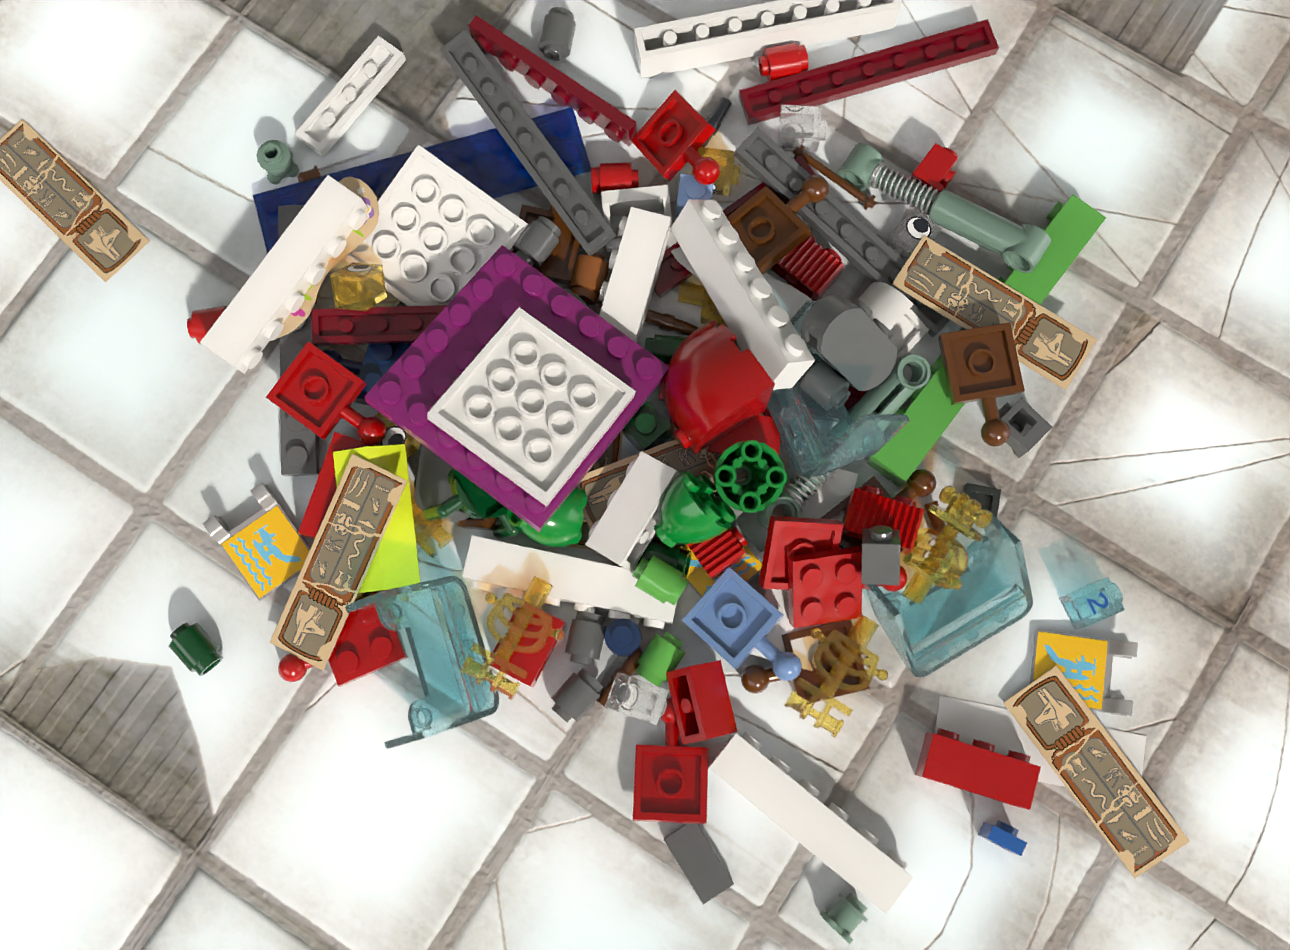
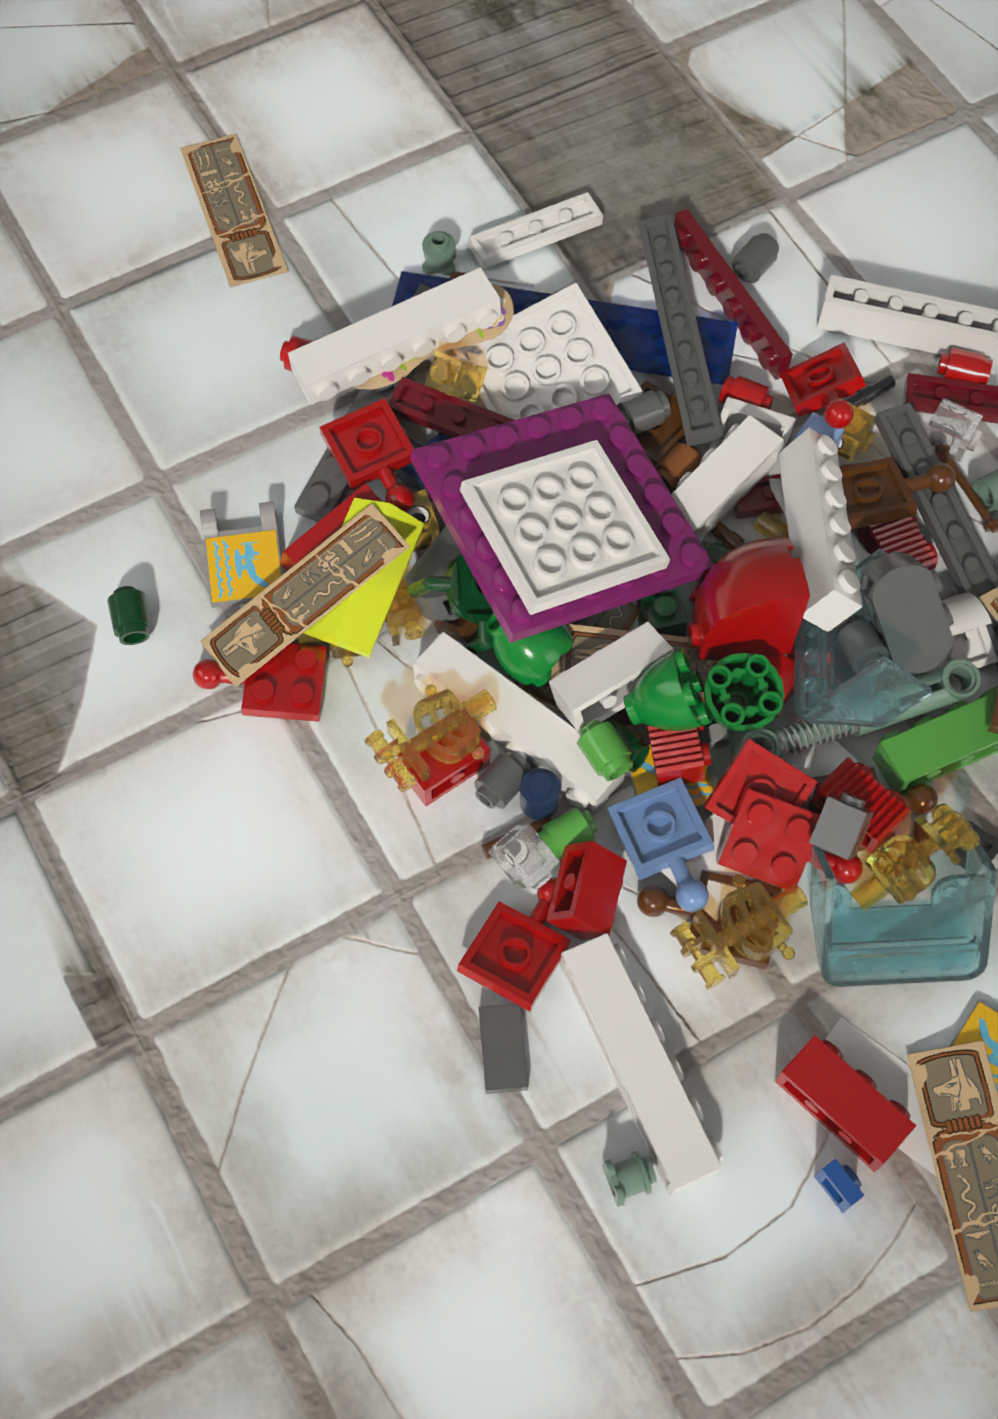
camera: 25 degrees right, 15 degrees down
(440, 635) = (367, 691): clear light blue windscreen -> none
(576, 696) = (464, 828): dark grey brick -> none

